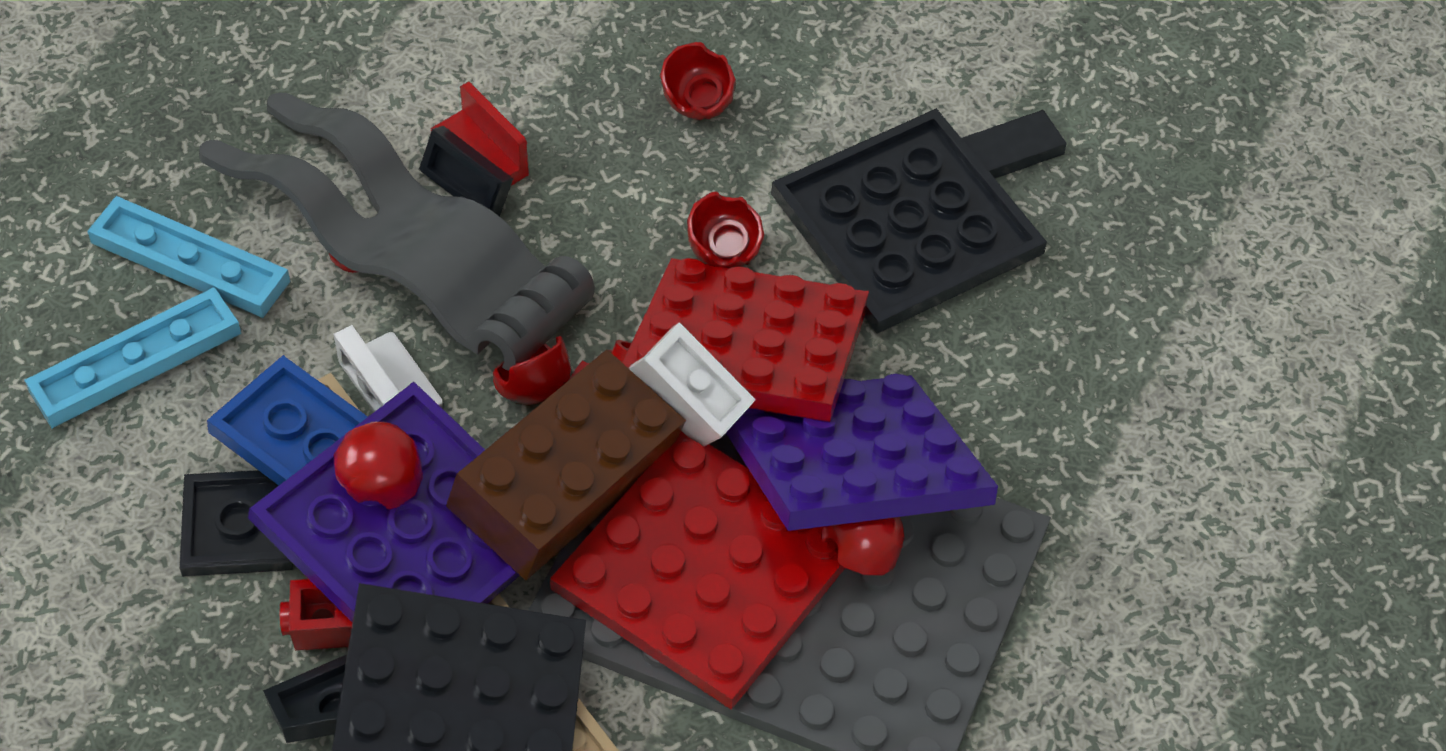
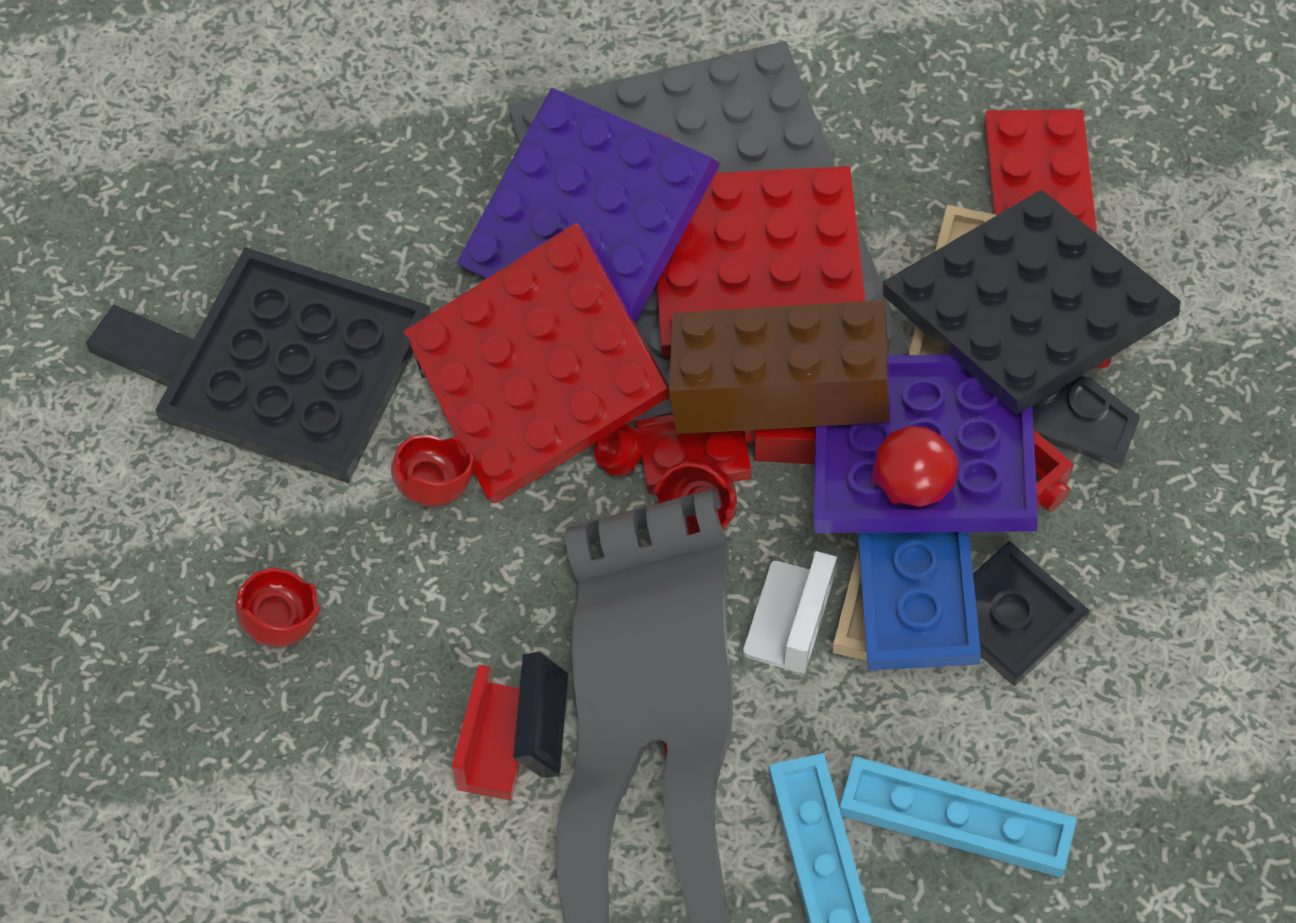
camera: 125 degrees left, 5 degrees up
(693, 385) = (646, 315): white panel -> none

